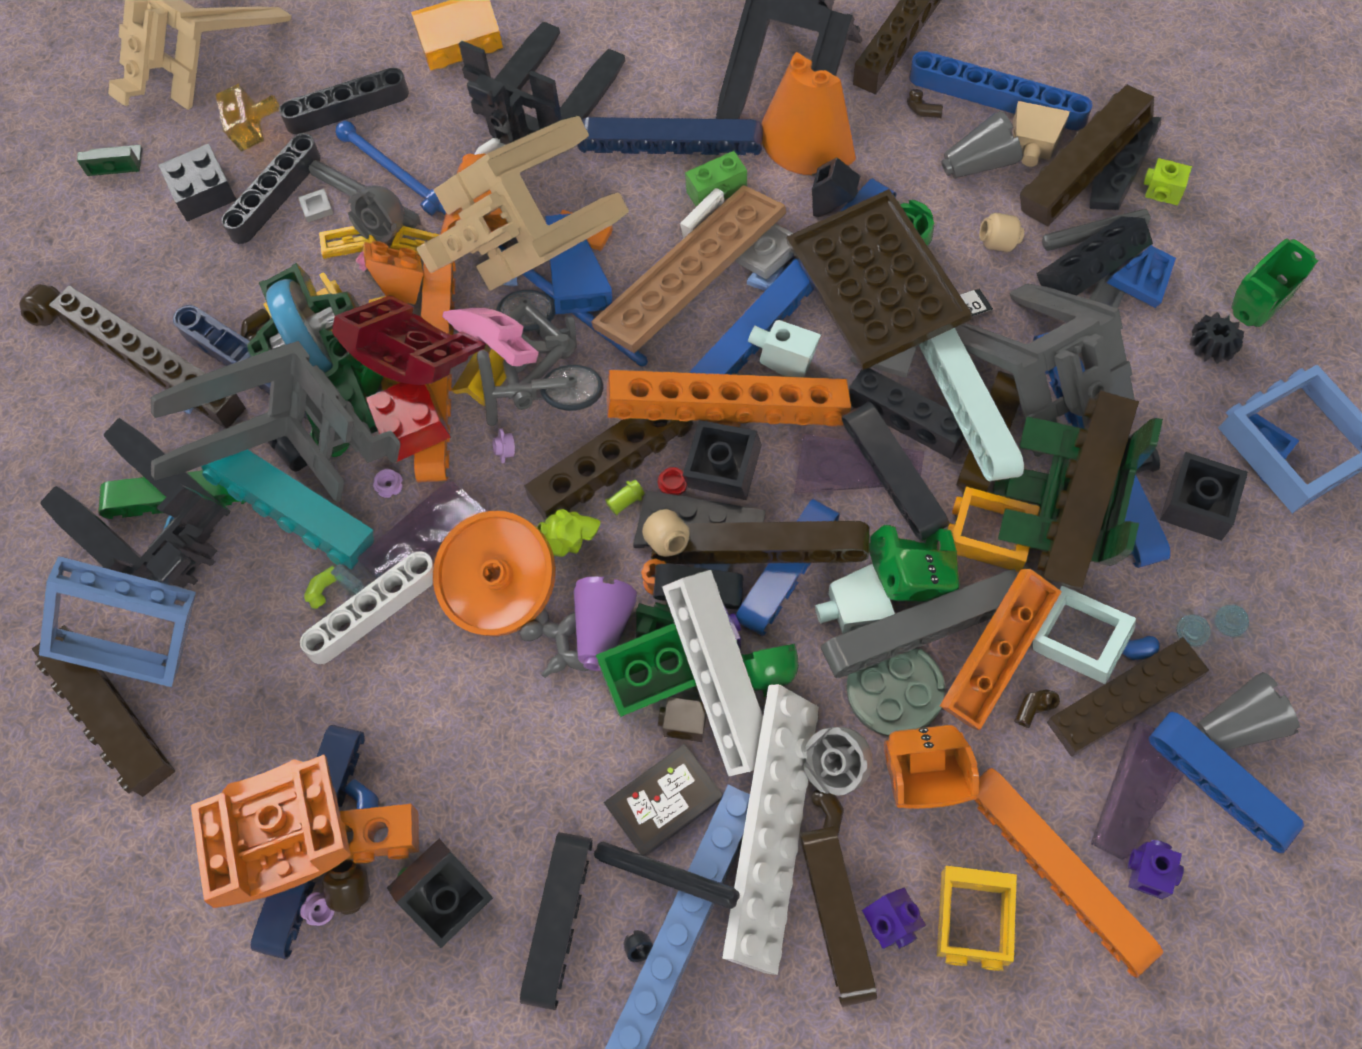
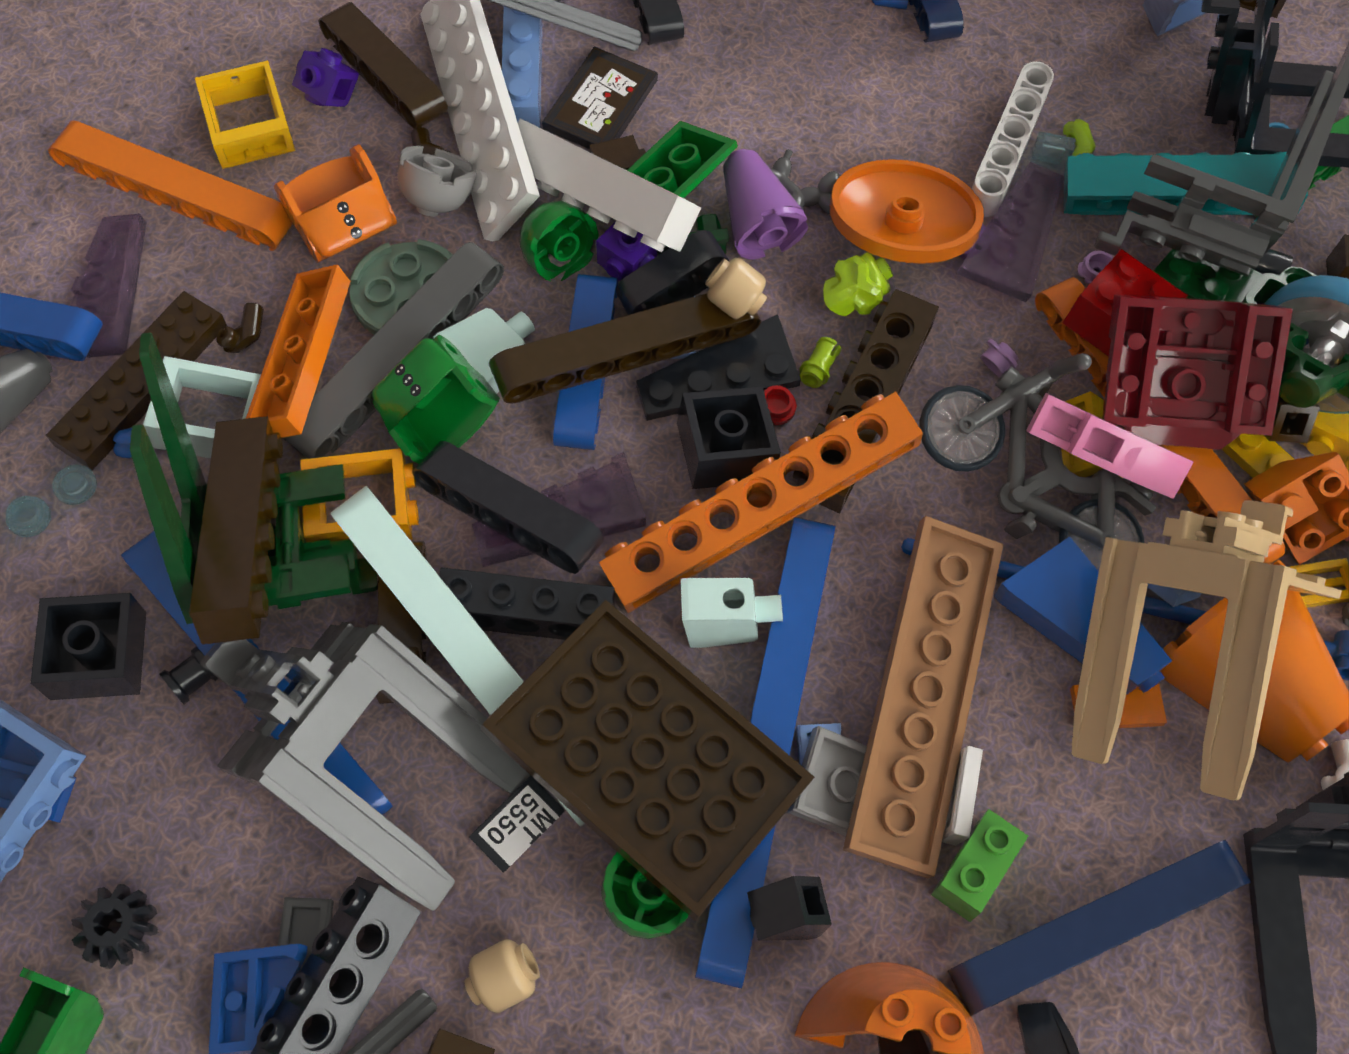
camera: 145 degrees right, 0 degrees up
(1155, 869) = (70, 212): dark purple brick -> none

